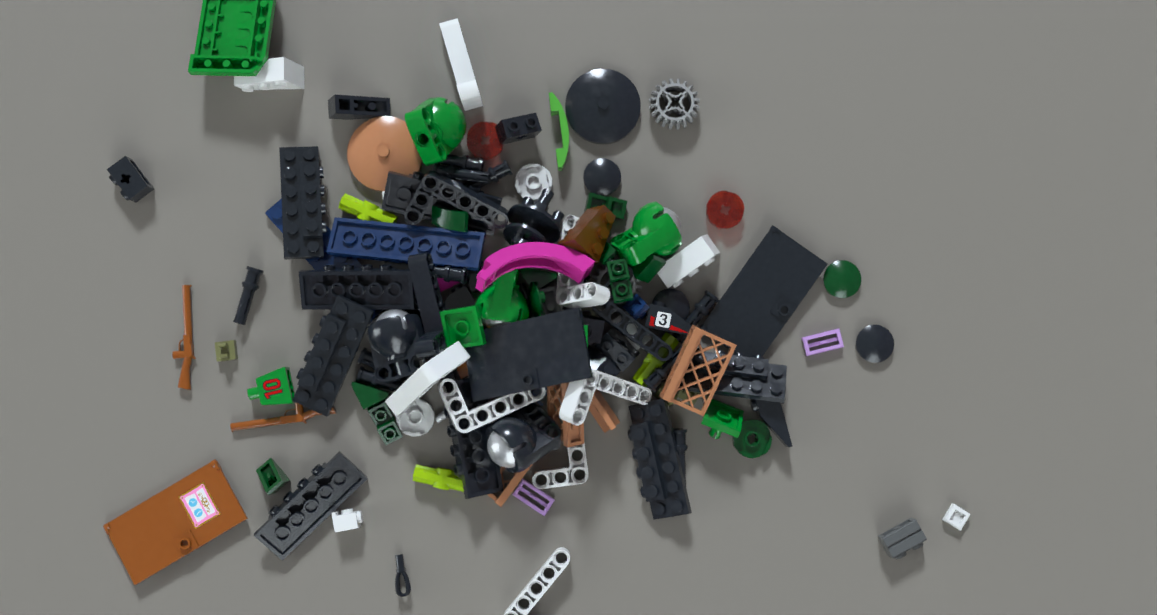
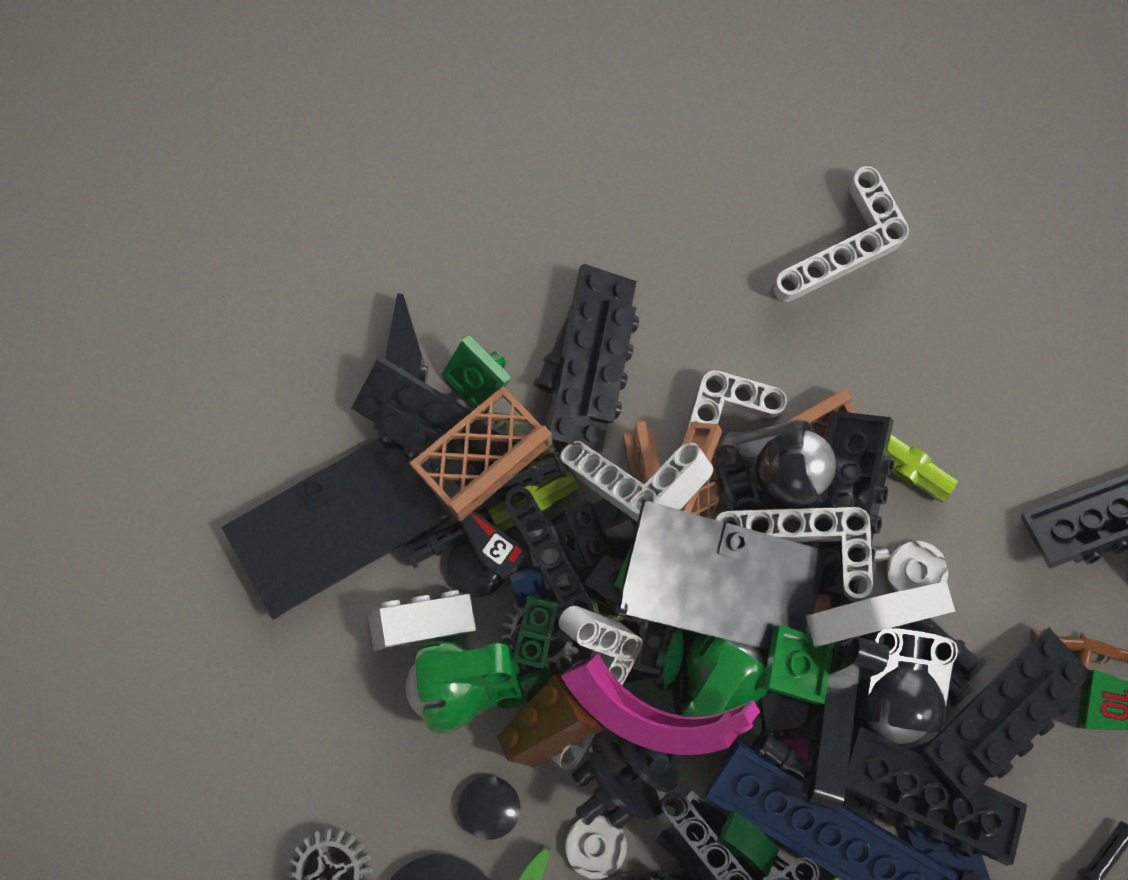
camera: 150 degrees left, 5 degrees down
(347, 519) = (1074, 467): white brick -> none
(368, 395) = (975, 631): dark green slope -> none
(385, 422) = (964, 582): dark green slope -> none
(401, 569) = (1023, 366): black piece -> none
(520, 488) = (768, 370): lavender tile -> none
(615, 205) = (490, 754): dark green slope -> none
(648, 268) = (485, 632): dark green slope -> none
(729, 200) = (318, 662): clear red plate -> none
(757, 448) = (445, 313): dark green plate -> none
(806, 346) = (309, 425): lavender tile -> none
(842, 279) = (211, 497): dark green dish -> none
(874, 343) = (211, 386): black dish -> none
(902, 538) = (306, 109): dark grey brick -> none
(956, 516) = (220, 107): white tile -> none

